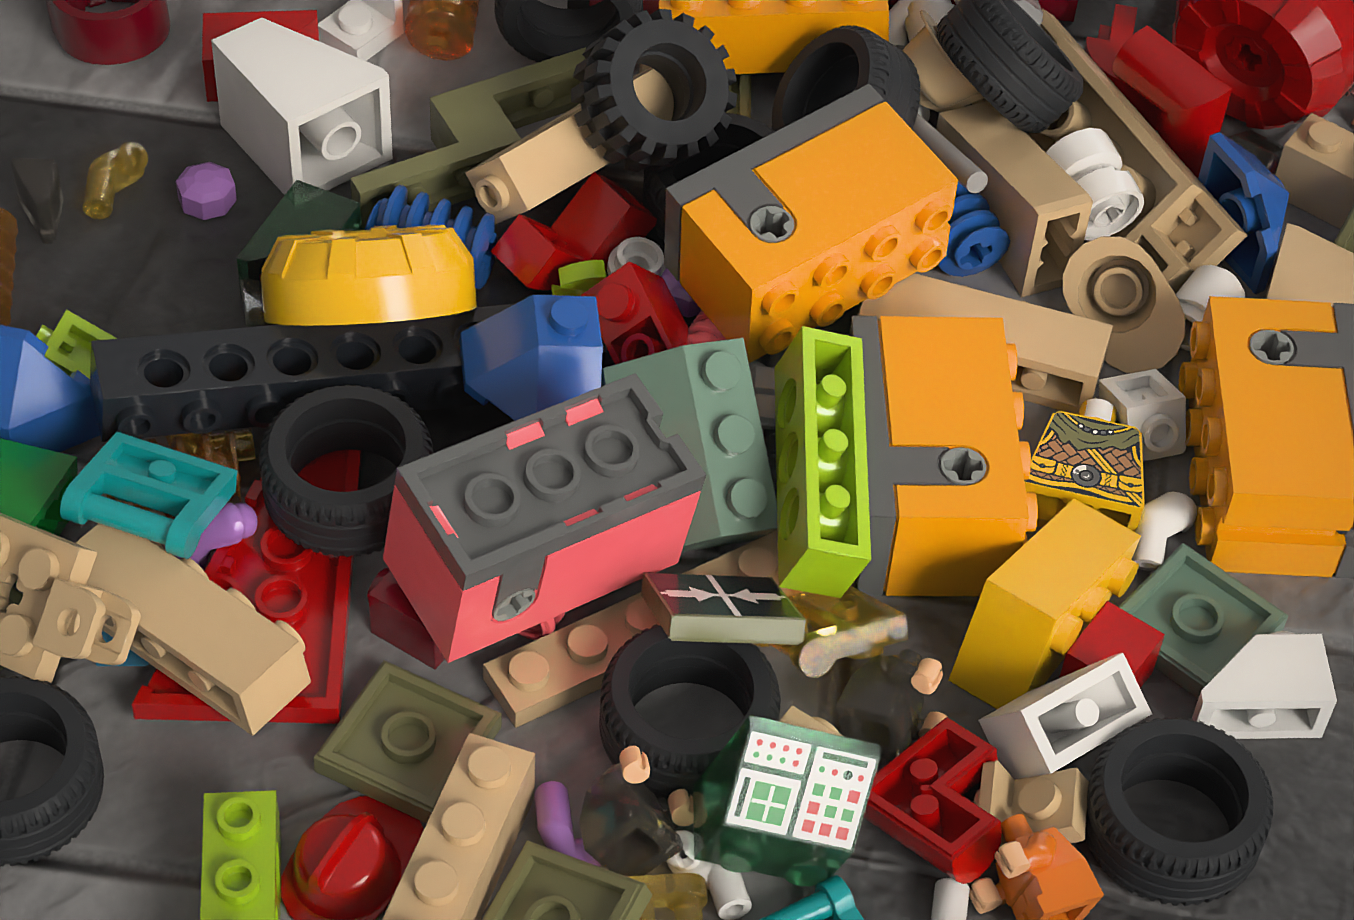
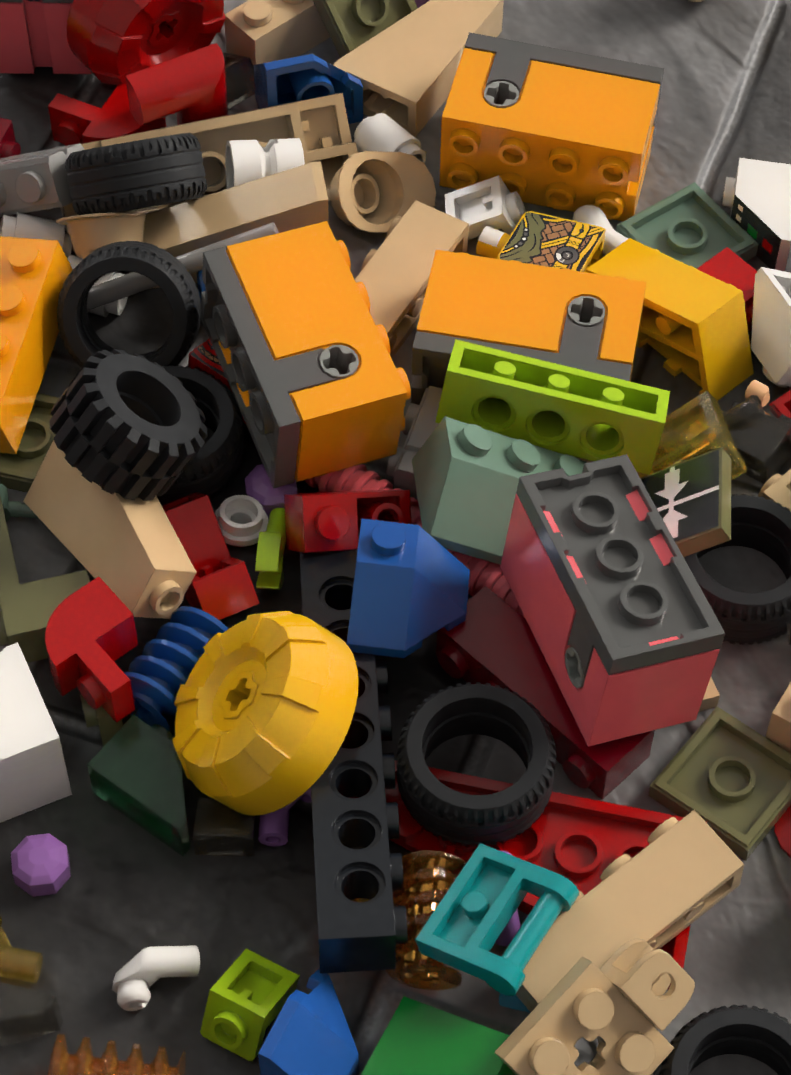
camera: 75 degrees left, 5 degrees up
(104, 283) = (147, 967): none -> white arm
(414, 135) = (84, 641): none -> red brick

